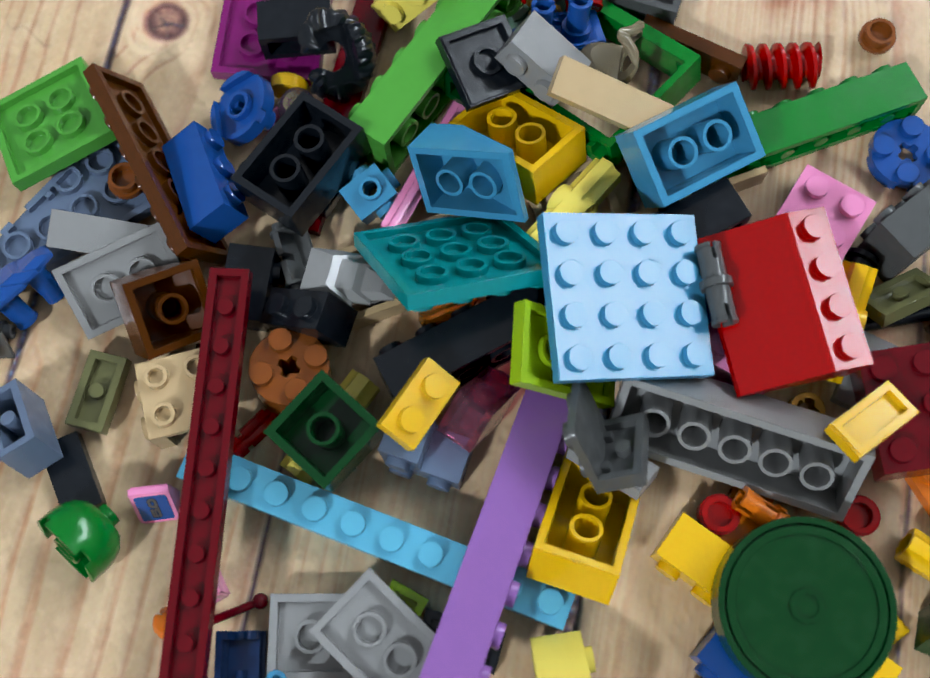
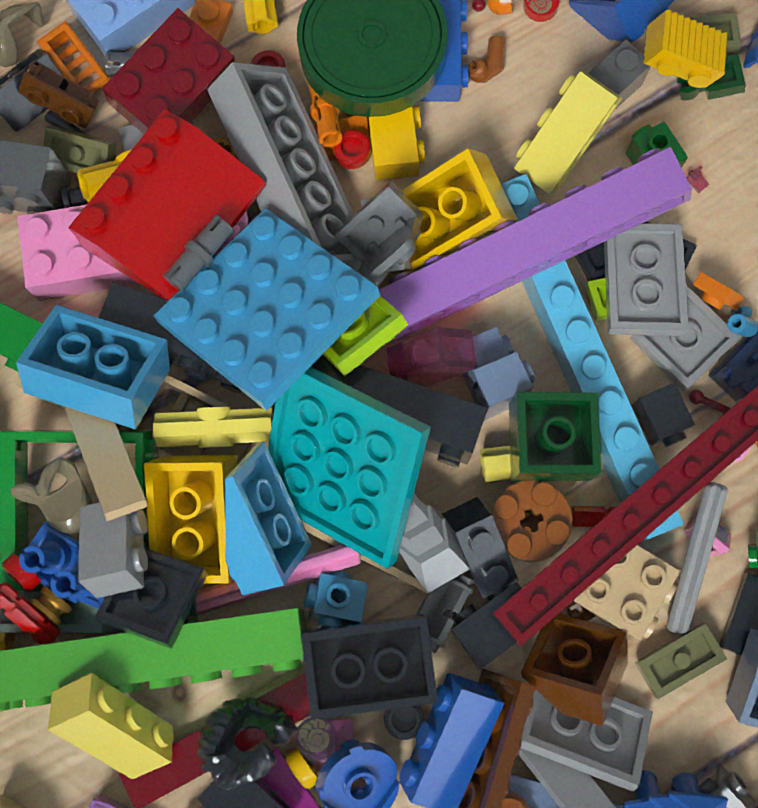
camera: 135 degrees left, 5 degrees up
(146, 466) = (697, 557): none -> light grey axle
(268, 550) = (663, 416): none -> black brick
(418, 404) = (477, 383): yellow plate -> none
(871, 421) = (208, 82): yellow tile -> none

